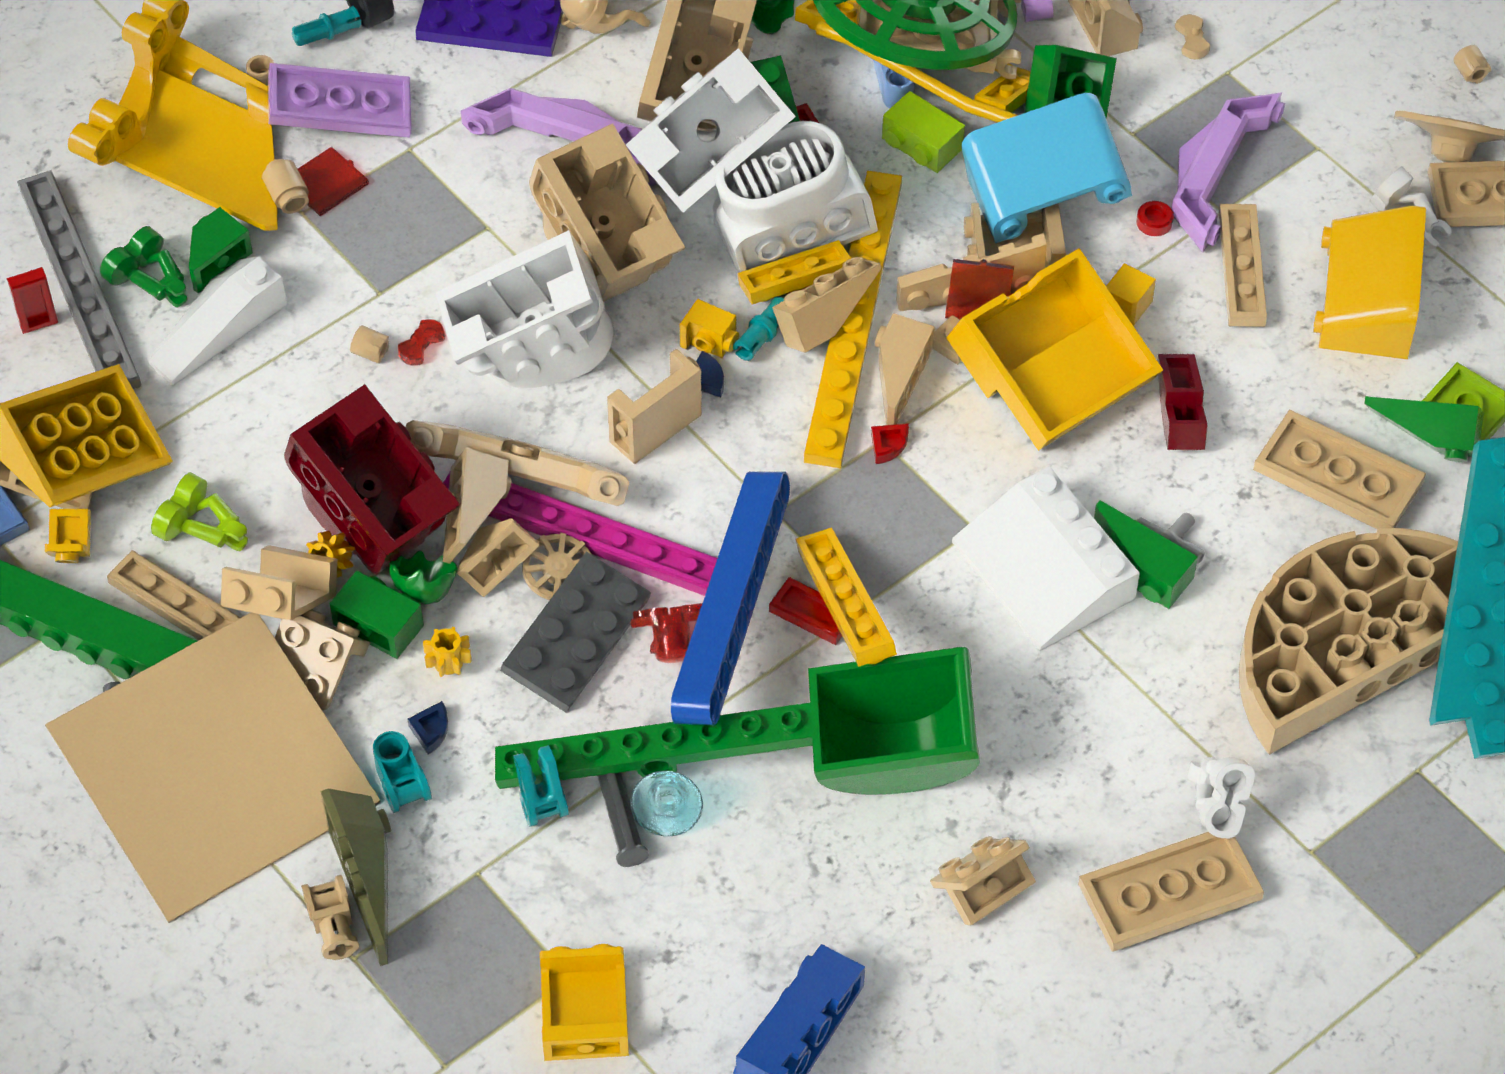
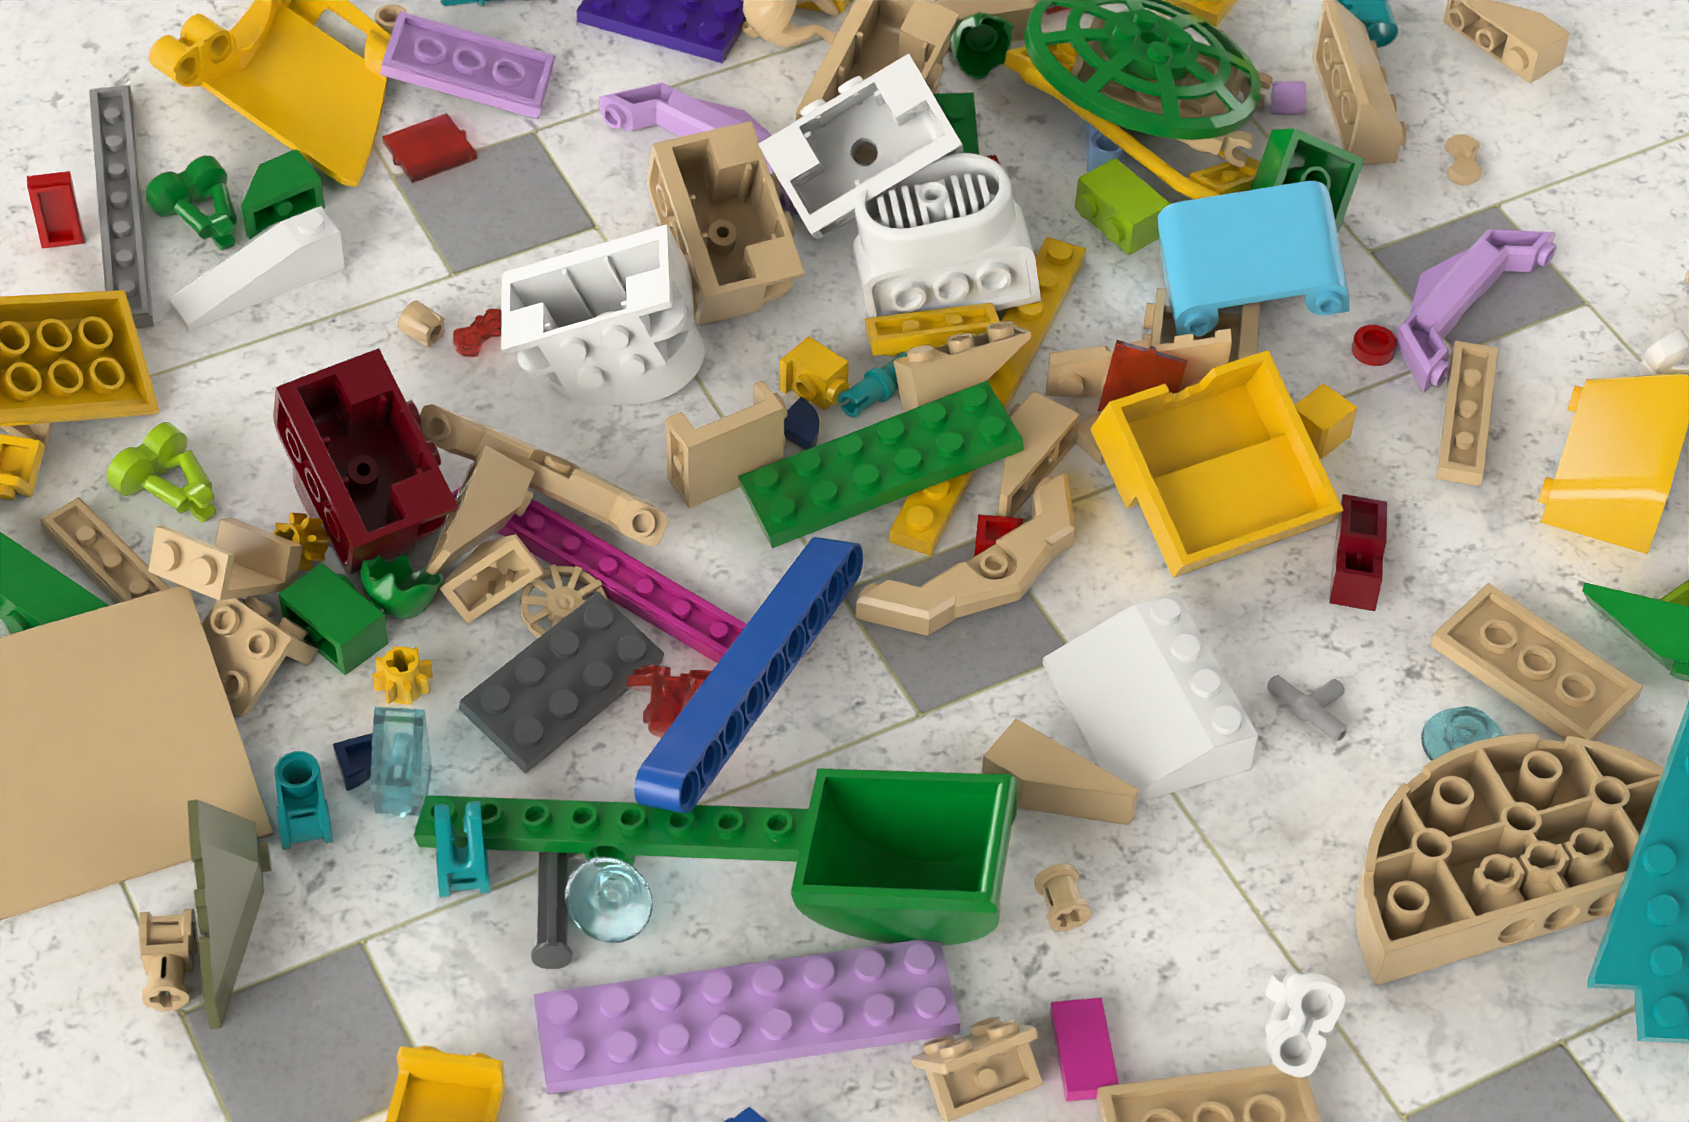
camera: 10 degrees right, 5 degrees down
(286, 185) = (380, 142): tan brick -> none
(470, 724) = (400, 761): none -> clear light blue slope
(783, 399) = (880, 463): none -> green plate
(793, 873) = (744, 1015): none -> lavender plate
(805, 609) = (852, 710): red tile -> none
(846, 597) = (888, 698): yellow plate -> none
(894, 480) = (987, 580): none -> tan helmet
(989, 635) = (1057, 778): none -> tan slope
(1016, 731) = (1062, 897): none -> tan bush
(1059, 847) = (1083, 1047): none -> dark pink tile
(1162, 564) = (1289, 733): green slope -> none
(1277, 540) = (1445, 730): none -> clear light blue piece

